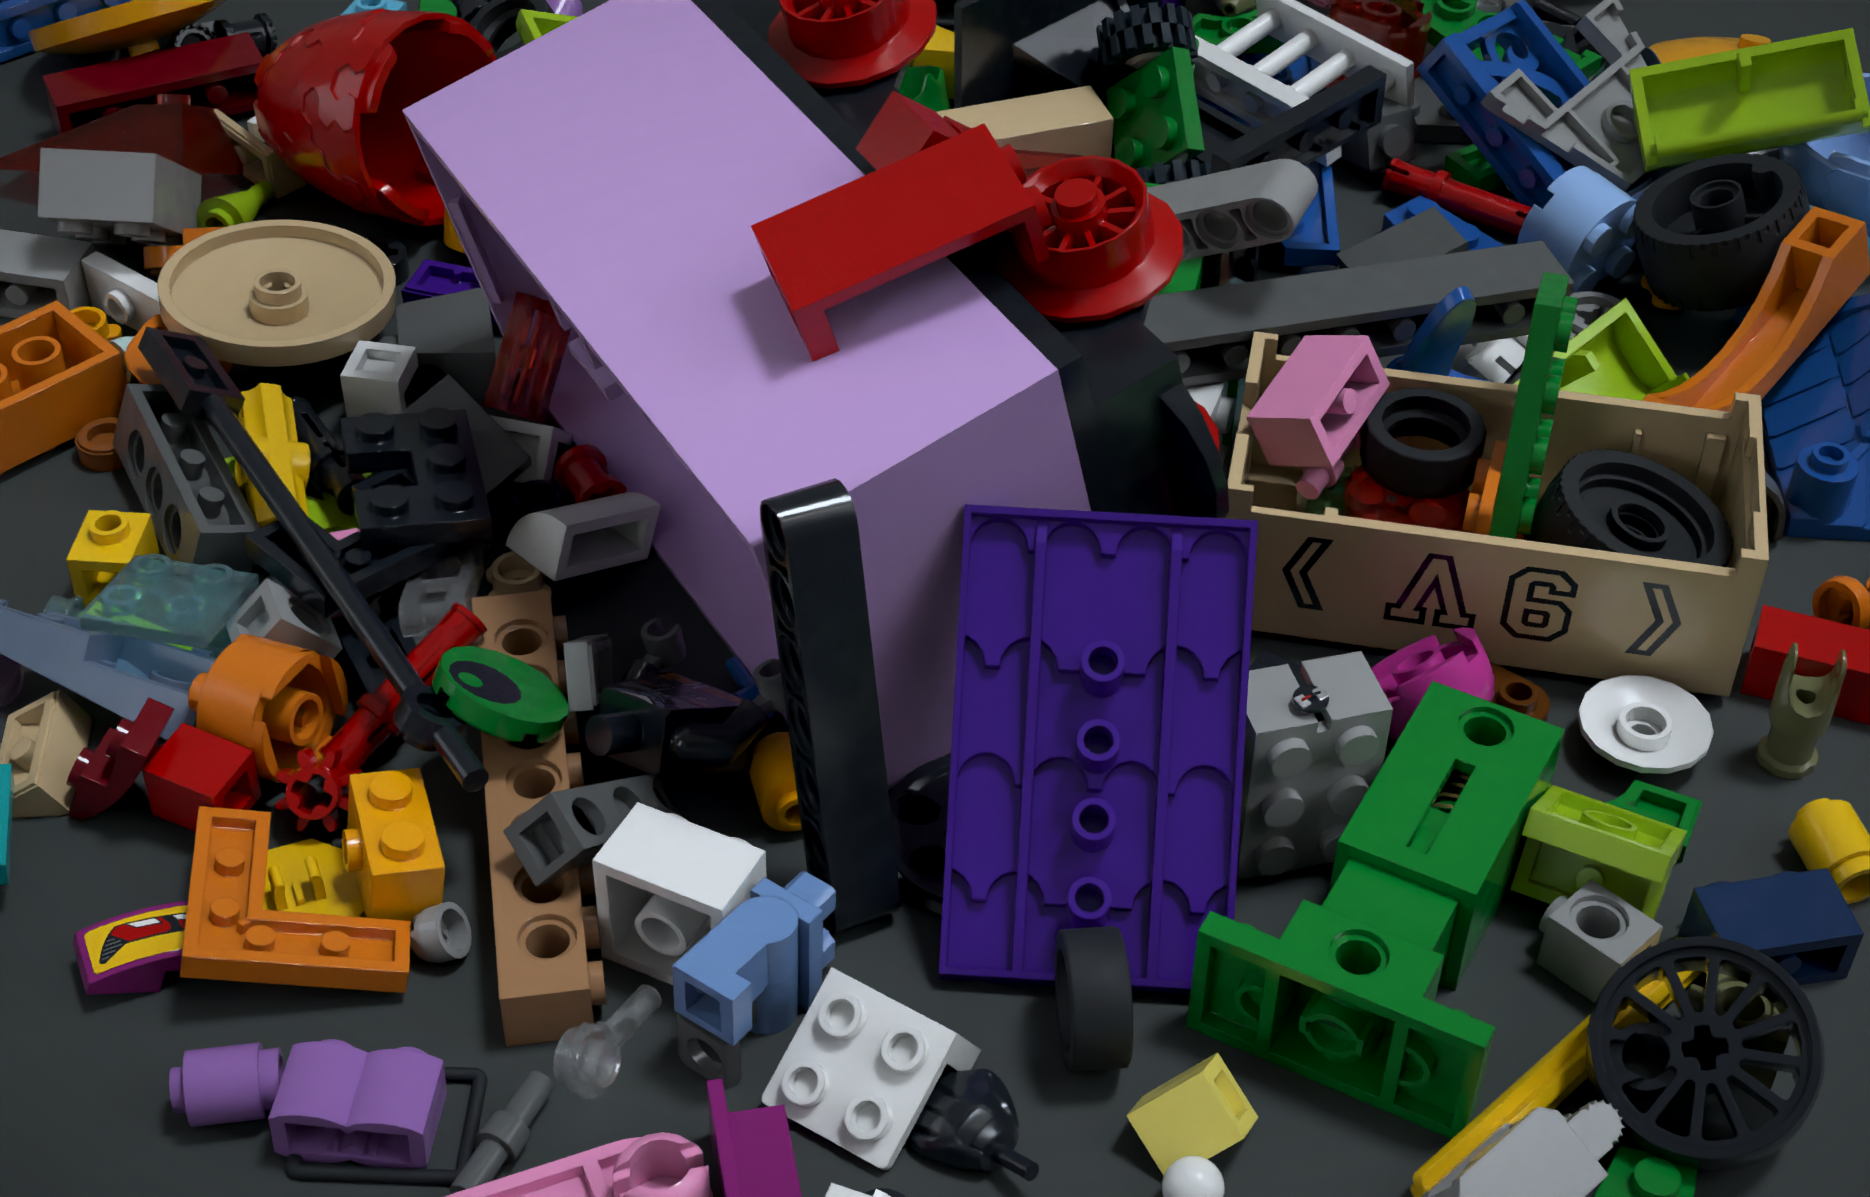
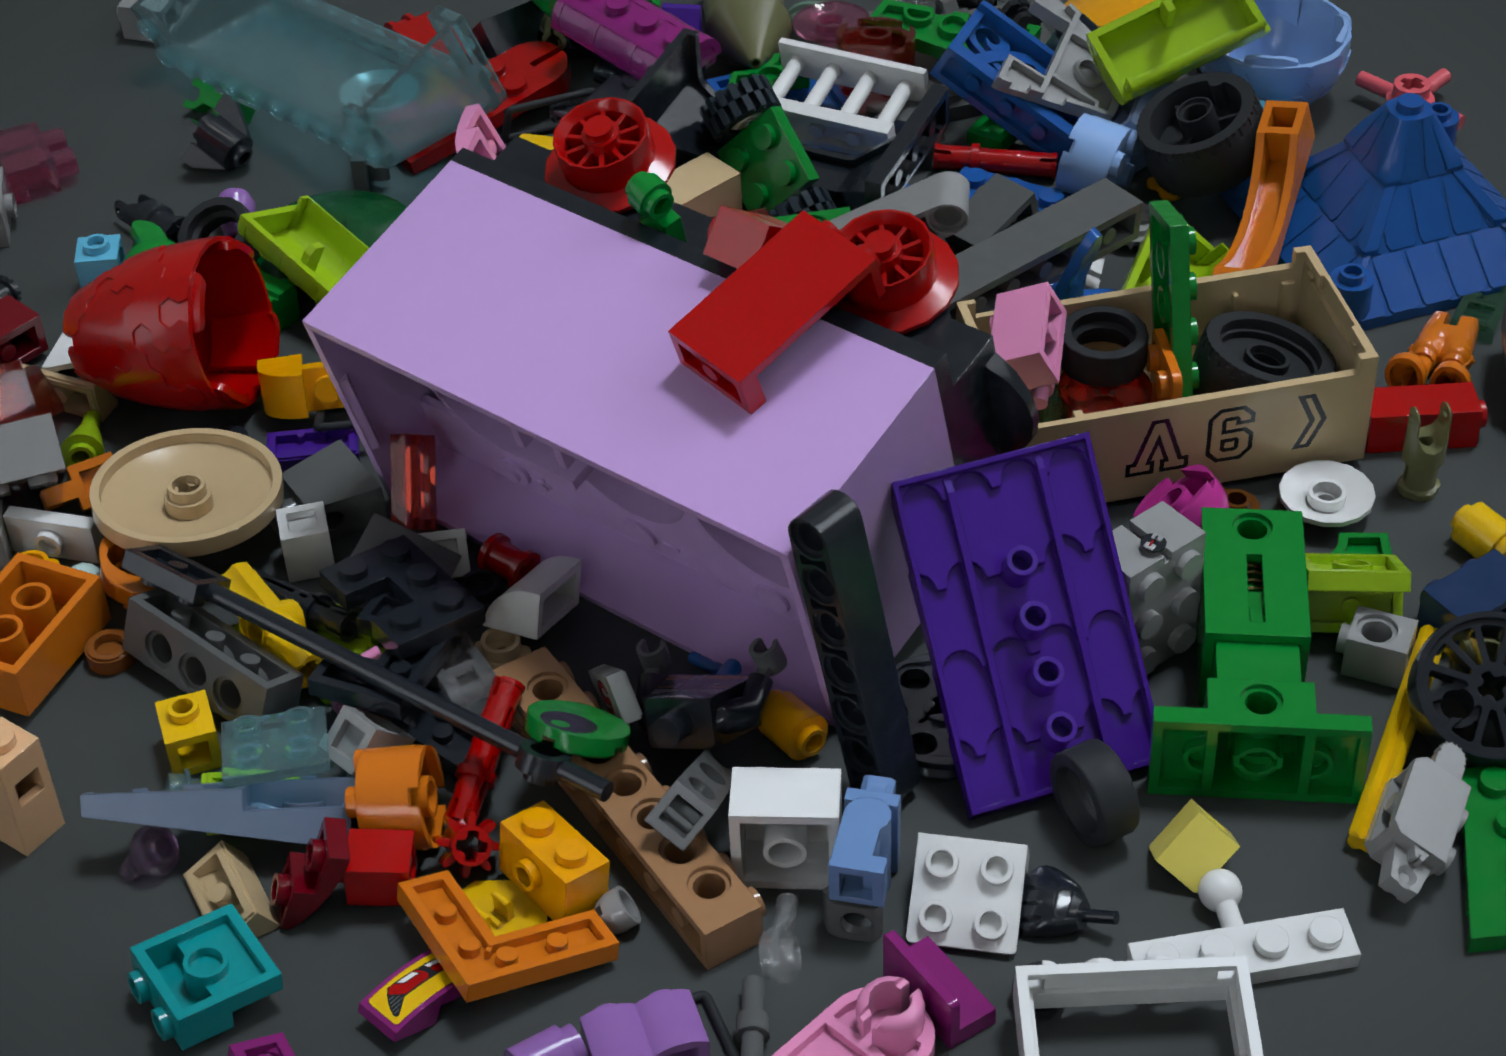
camera: 20 degrees left, 0 degrees up
(842, 72) = (654, 204): none -> green plate

